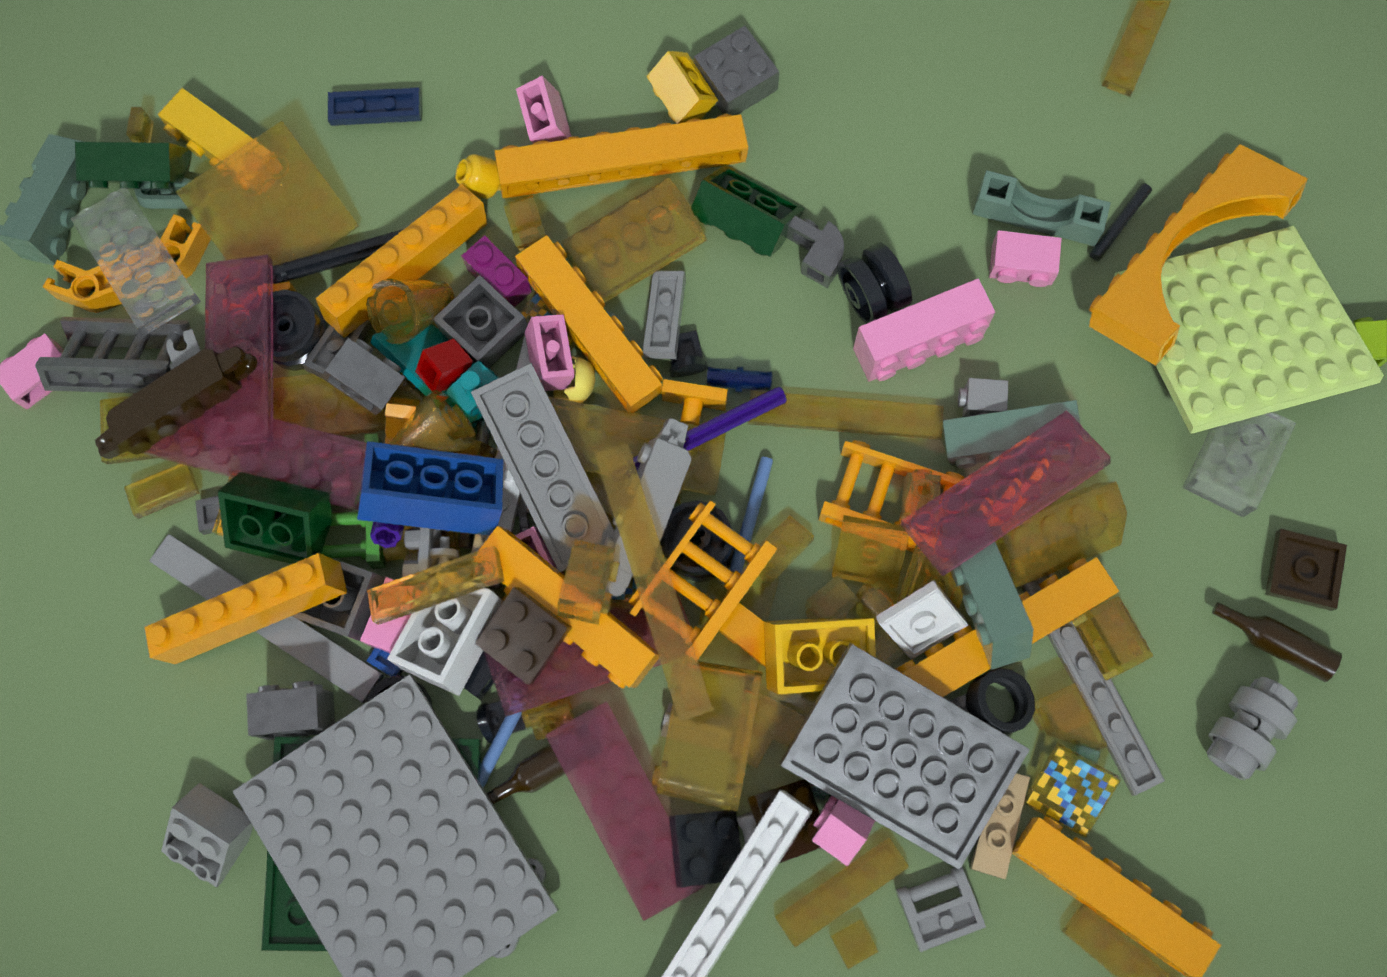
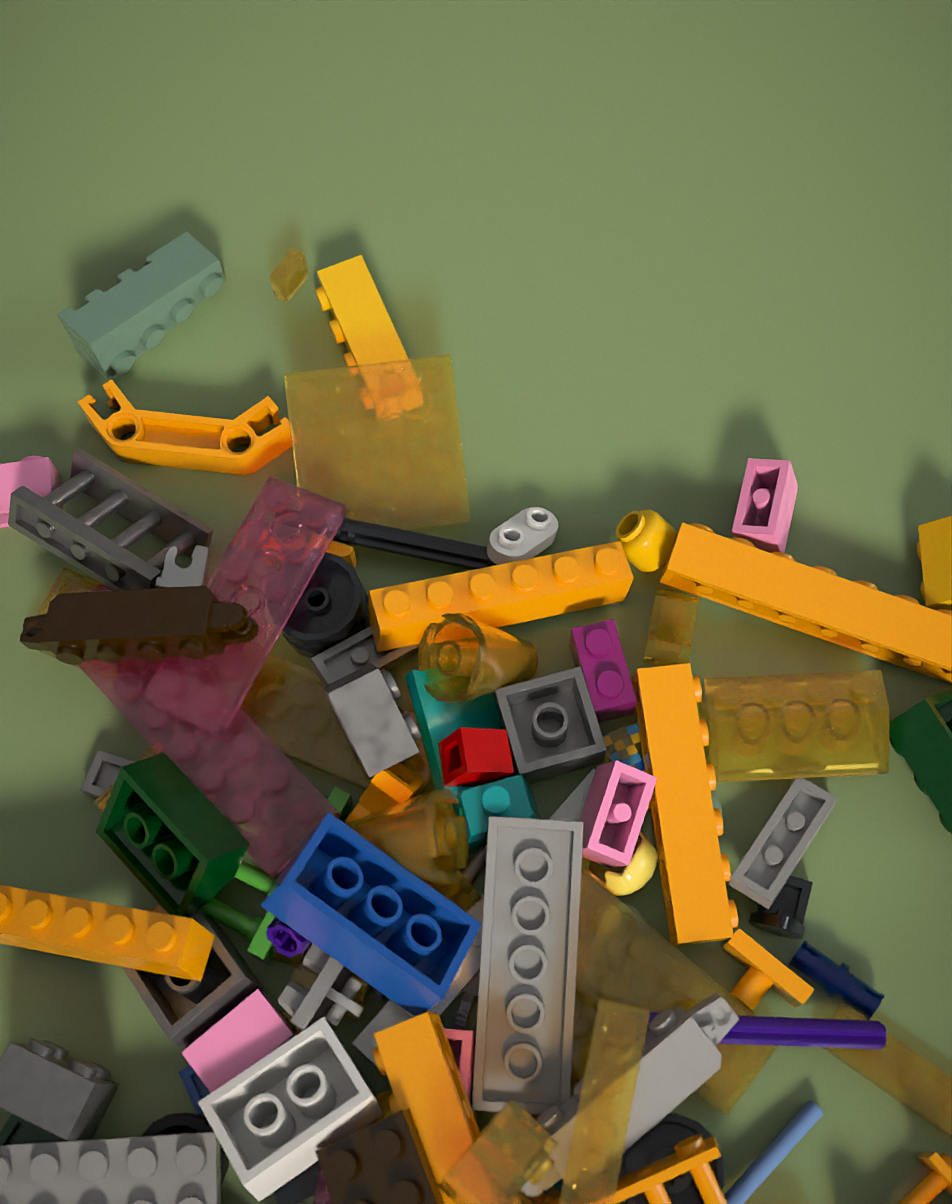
camera: 30 degrees right, 5 degrees down
(131, 164) = (254, 314): dark green slope -> none
(135, 261) = (193, 432): clear plate -> none
(160, 198) = (270, 361): sand green plate -> none
(161, 490) = (68, 714): clear yellow plate -> none
(288, 634) = (121, 1009): light grey tile -> none
(374, 106) = (568, 389): dark blue plate -> none
(397, 214) = (522, 536): none -> white plate
(435, 585) = (309, 1045): clear yellow plate -> none

